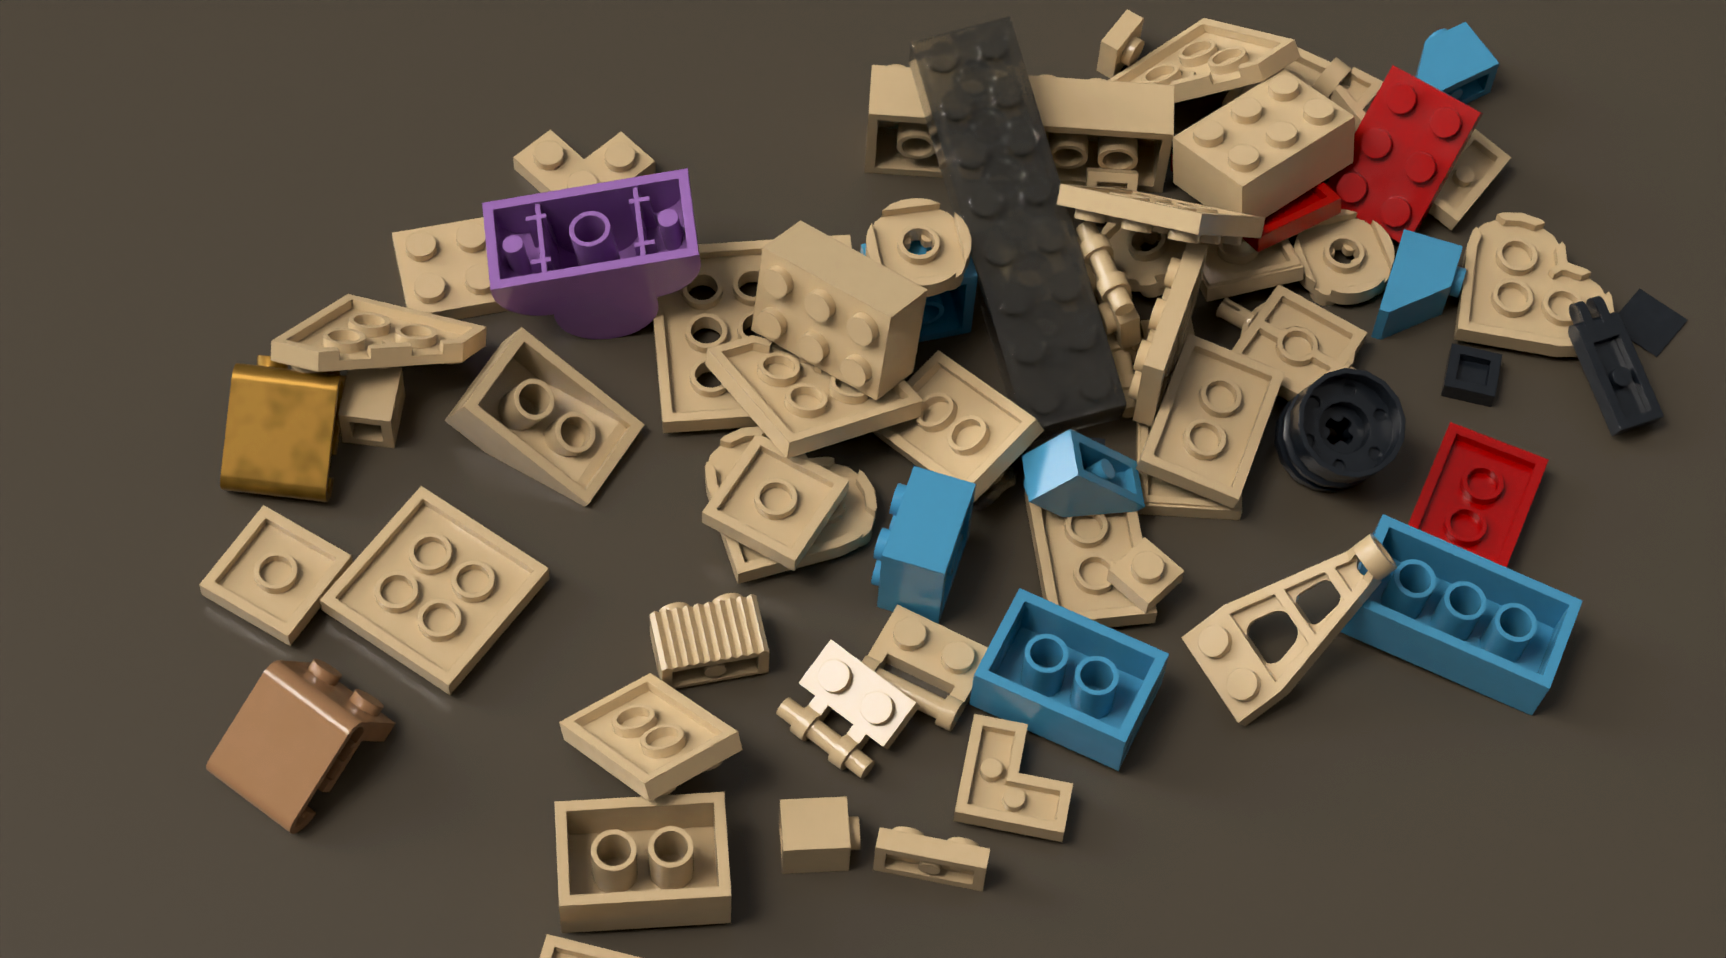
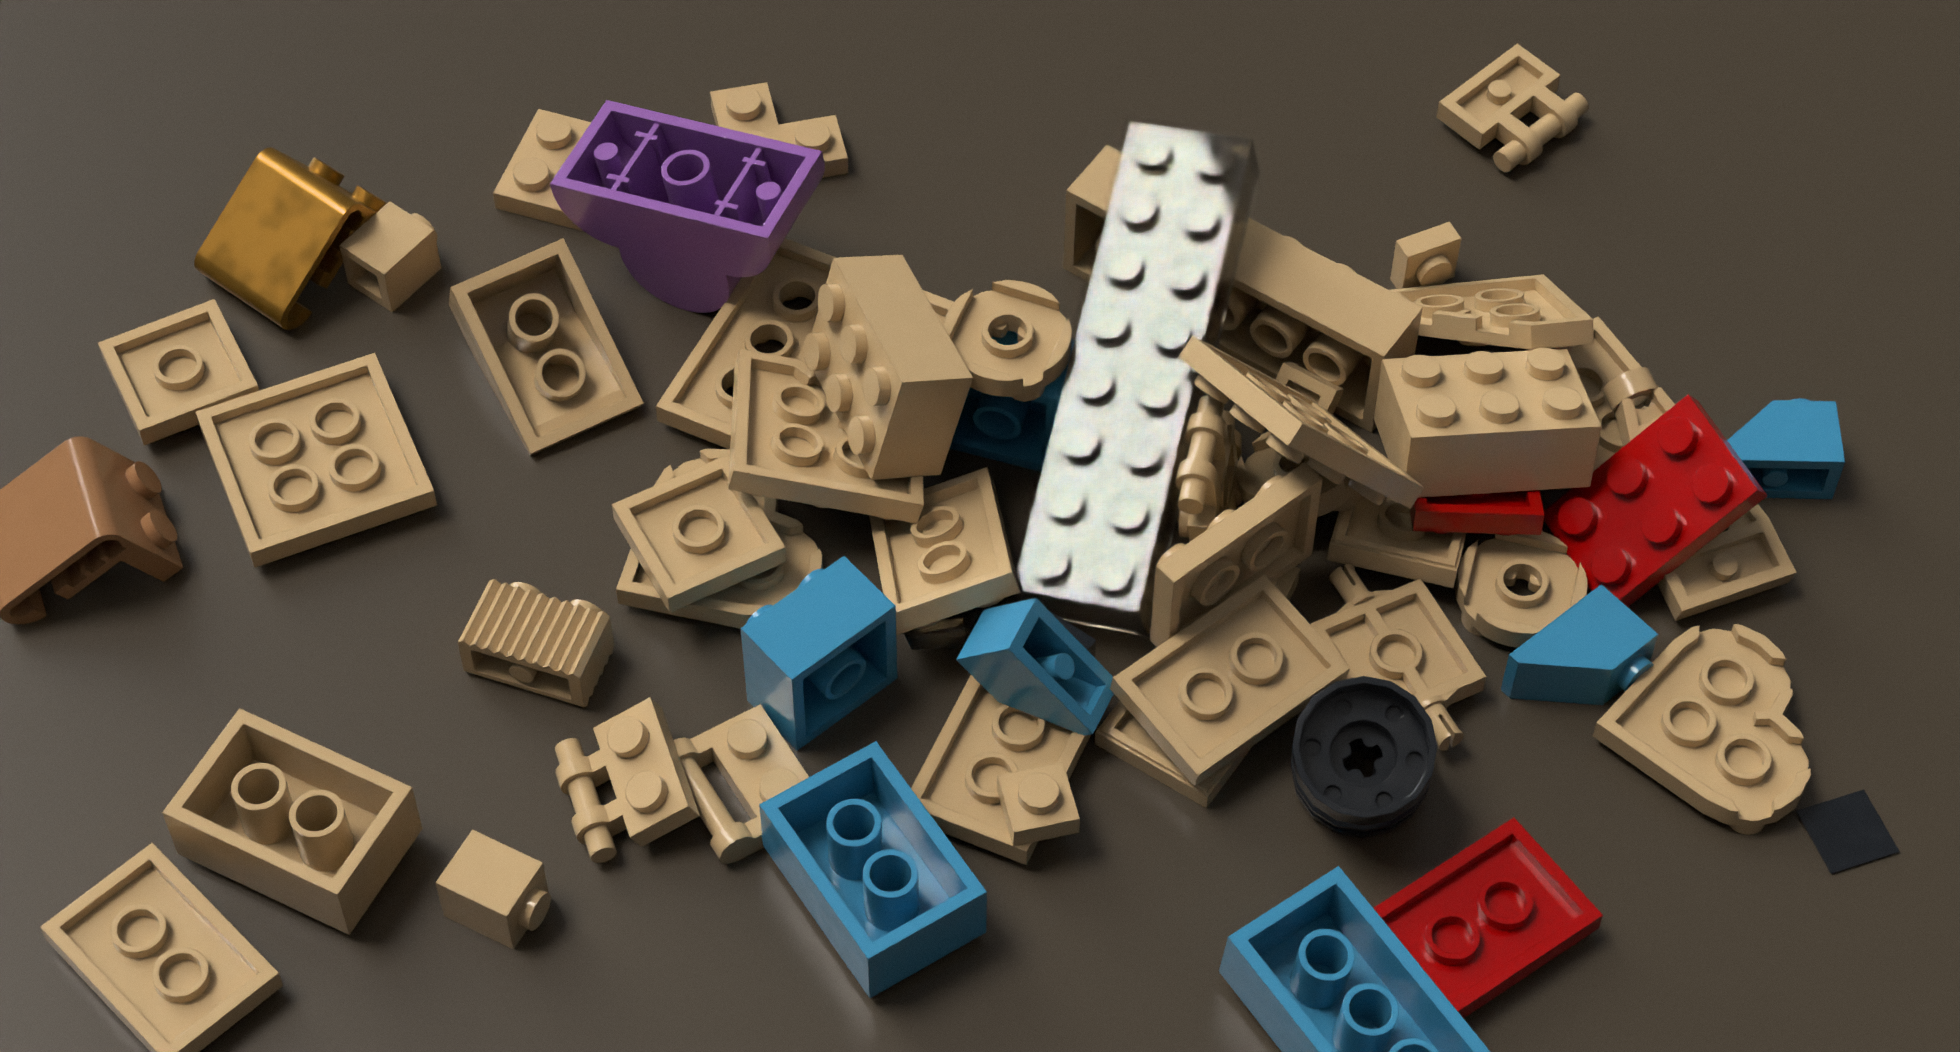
camera: 35 degrees right, 5 degrees down
(375, 335) = (428, 187): tan plate -> none
(651, 737) = (390, 700): tan plate -> none
(913, 855) = (579, 964): tan plate -> none
(1001, 797) = (719, 947): tan plate -> none
(1234, 662) = (1078, 930): tan plate -> none
(1471, 375) = (1585, 784): black tile -> none
(1612, 367) = (1753, 854): black hinge -> none

